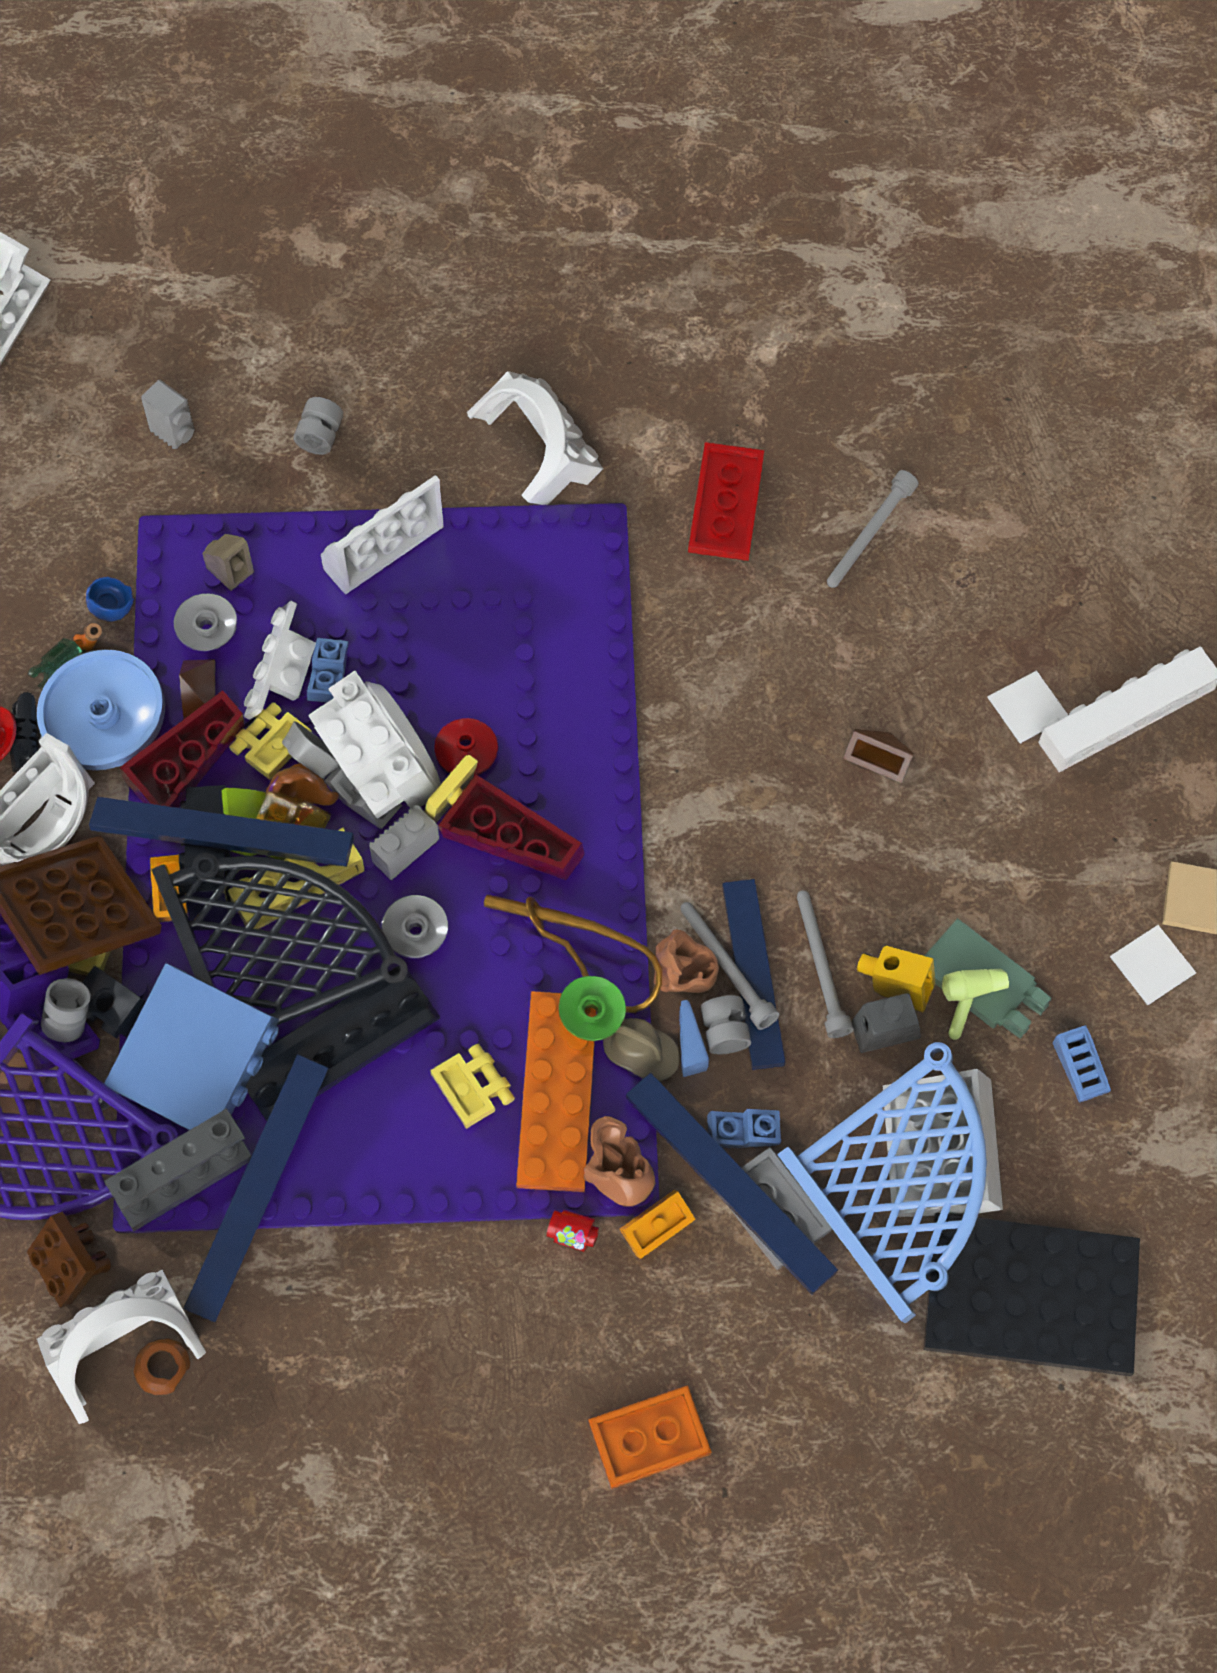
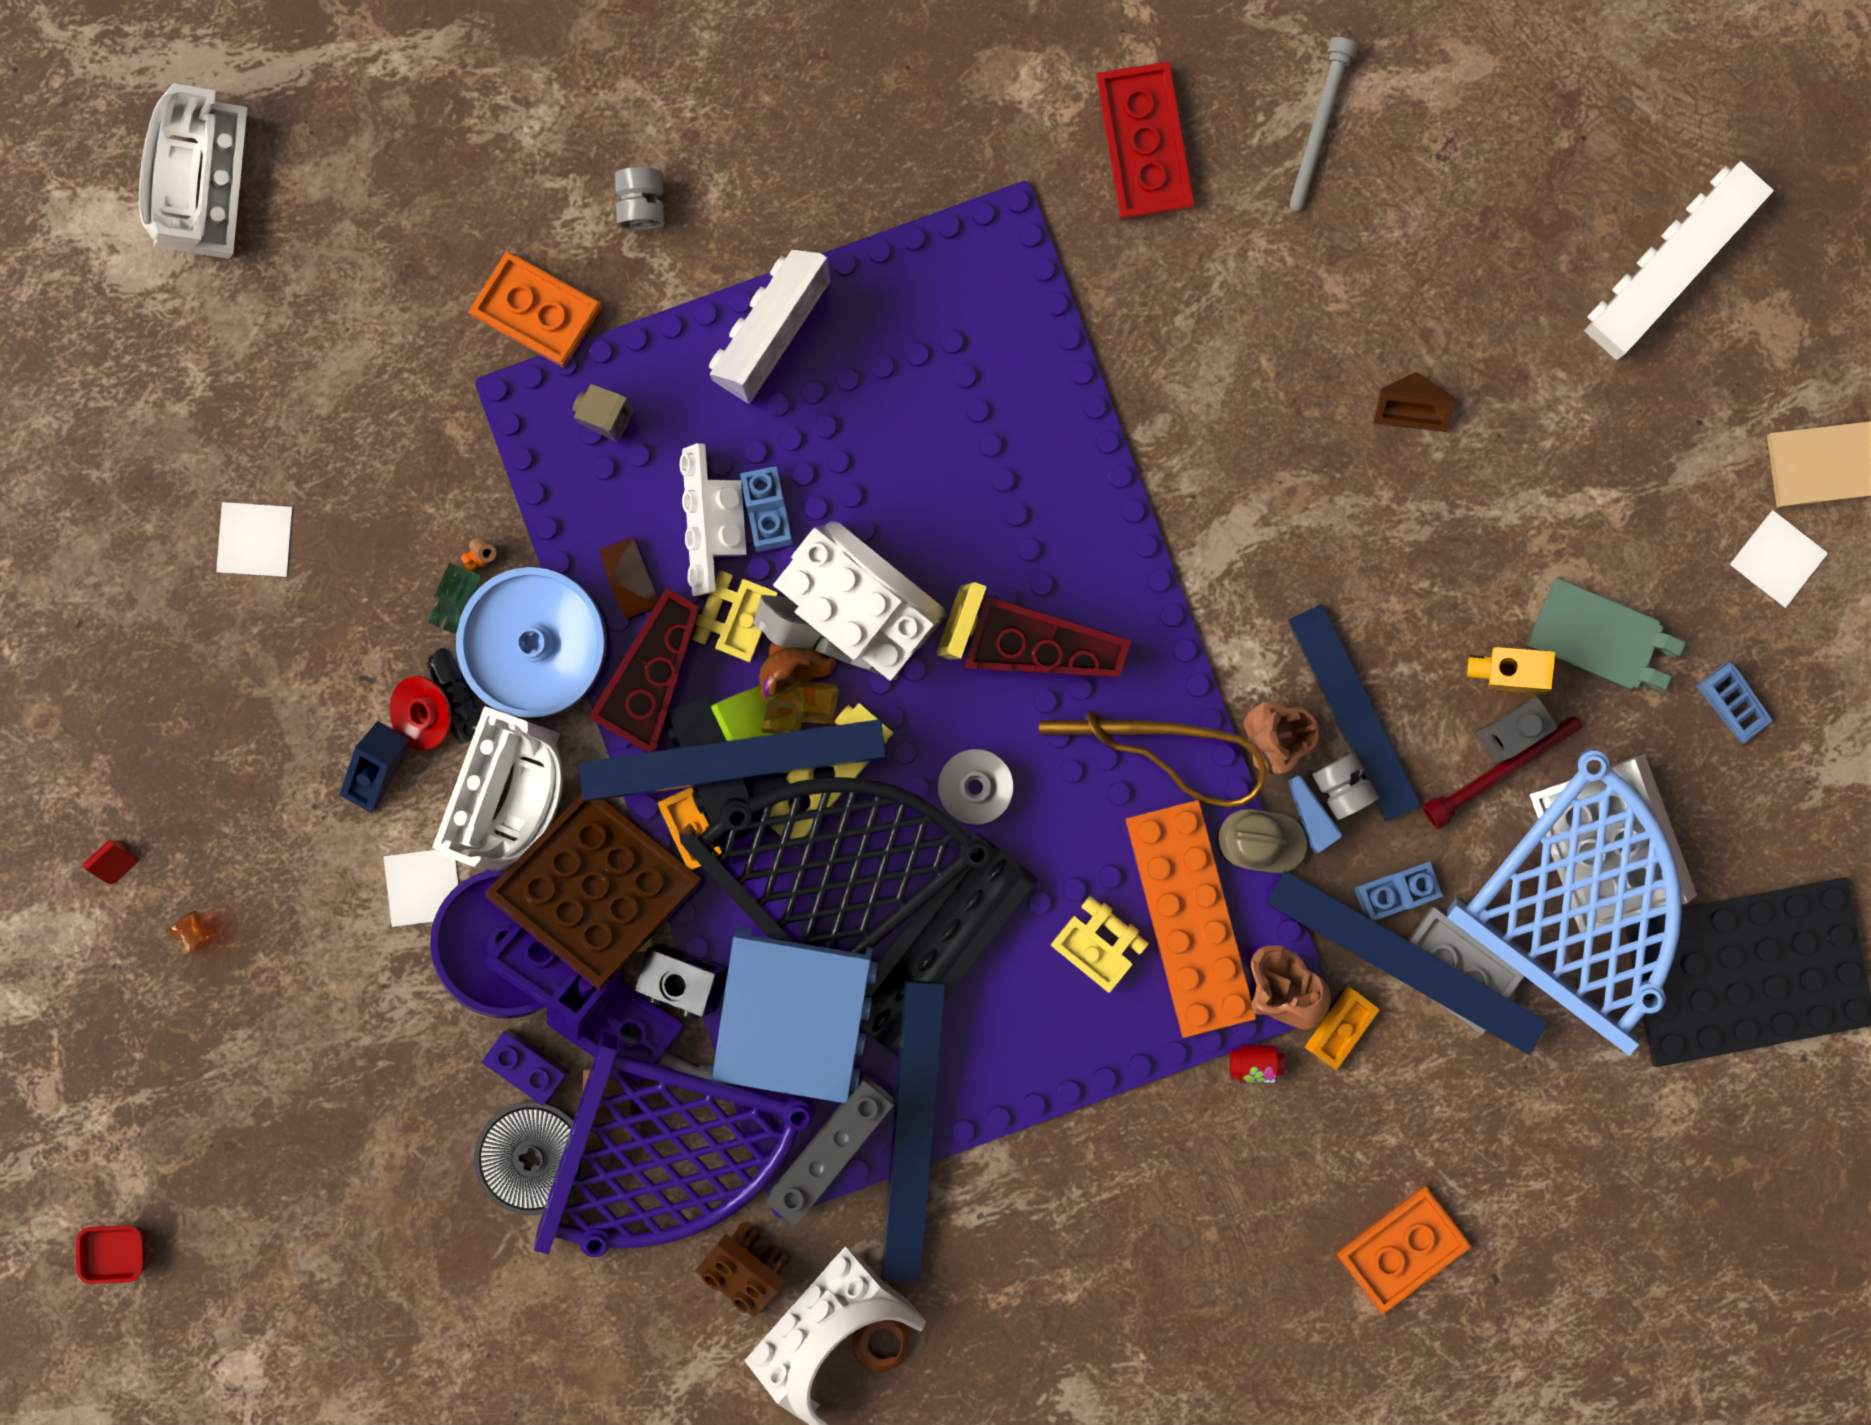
camera: 20 degrees left, 20 degrees up
(65, 1010) = (639, 1013): light grey wheel -> none
(109, 599) = (484, 500): blue hair -> none
(168, 414) = (461, 245): light grey brick -> none
(205, 610) = (593, 484): light grey dish -> none
(207, 480) = (535, 309): none -> orange tile
(404, 842) = (929, 693): light grey brick -> none
(482, 747) = (959, 569): red dish -> none
(566, 453) = (947, 143): white piece -> none
(596, 994) = (1221, 819): bright green dish -> none
(762, 1012) = (1378, 758): light grey piece -> none
(802, 1072) = (1441, 810): none -> dark red piece
(837, 1023) = (1460, 738): light grey piece -> none
(965, 986) = (1593, 658): yellowish green piece -> none
(1027, 706) = (1560, 289): white sticker -> none

